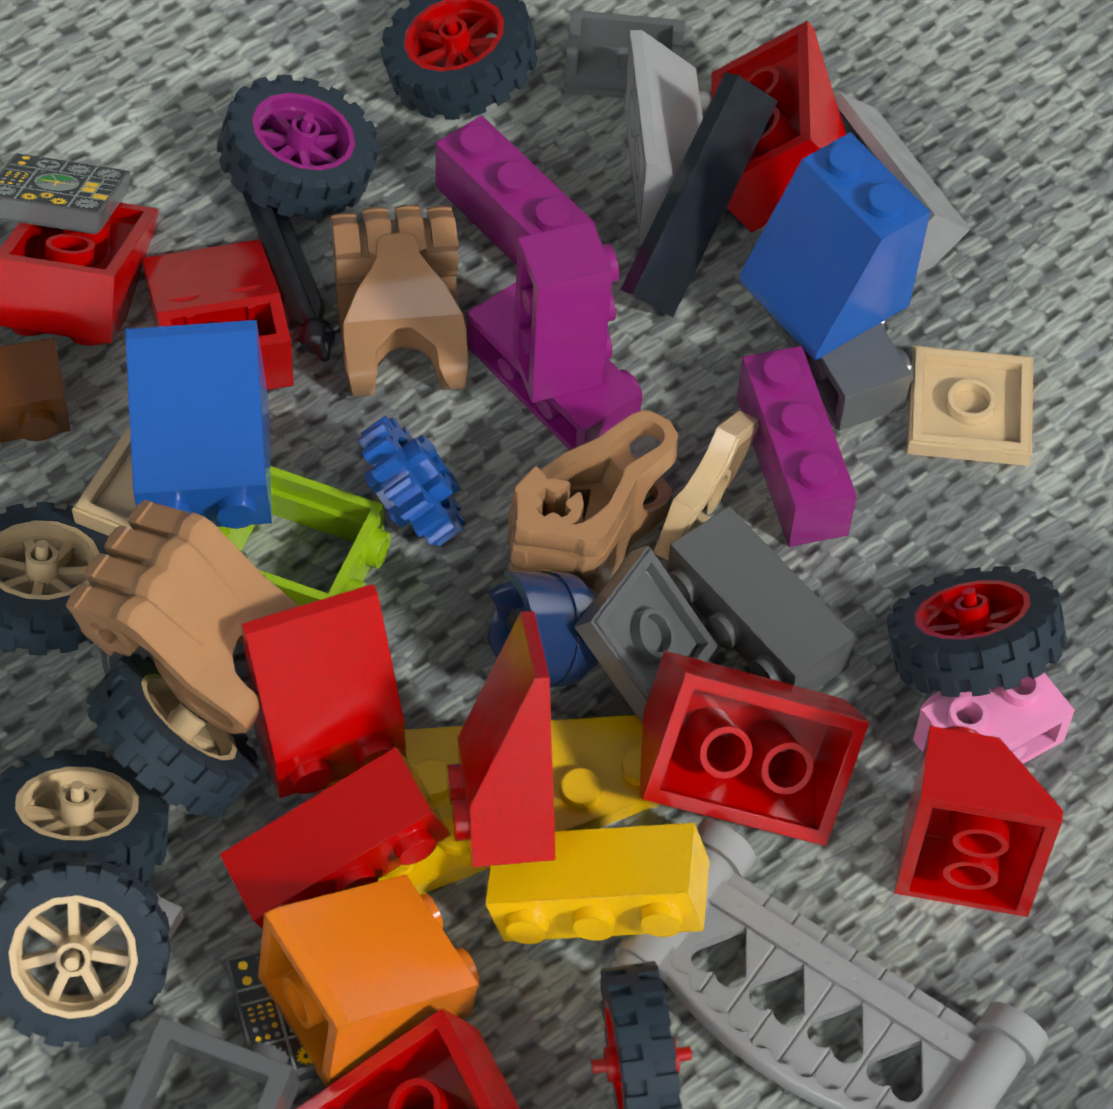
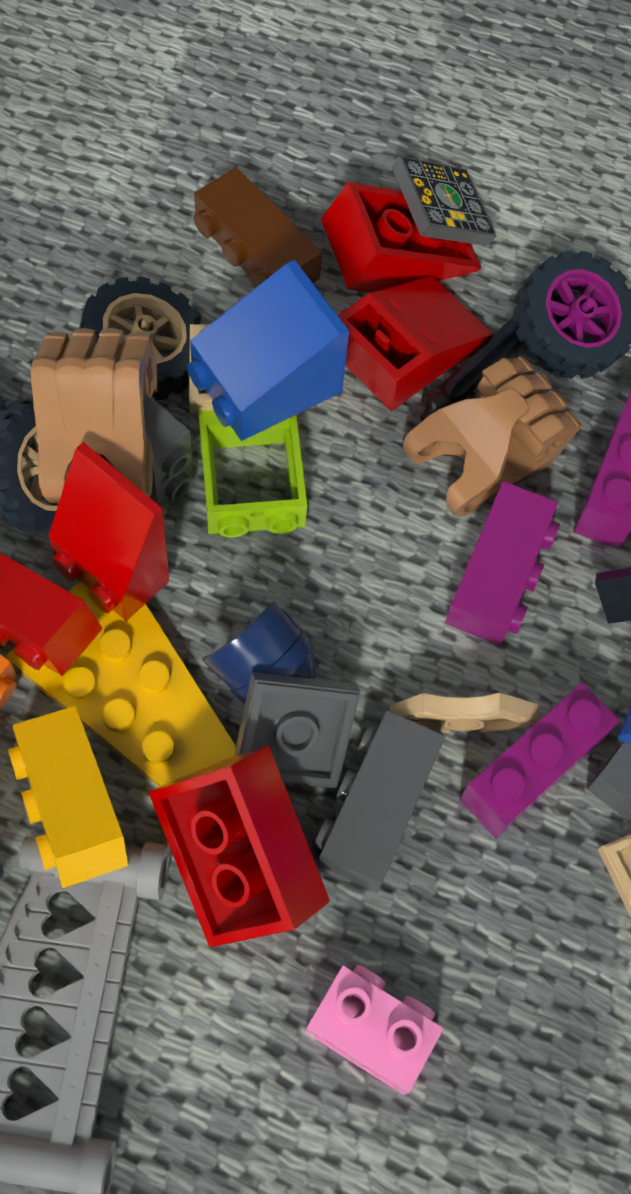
camera: 60 degrees right, 10 degrees up
(411, 481) = (336, 513): blue gear -> none
(505, 759) = (104, 685): red slope -> none
(563, 310) = (507, 526): magenta brick -> none
(605, 487) = (337, 623): medium nougat piece -> none
(975, 825) = (238, 1045): red slope -> none
(977, 631) = (423, 1008): black wheel -> none

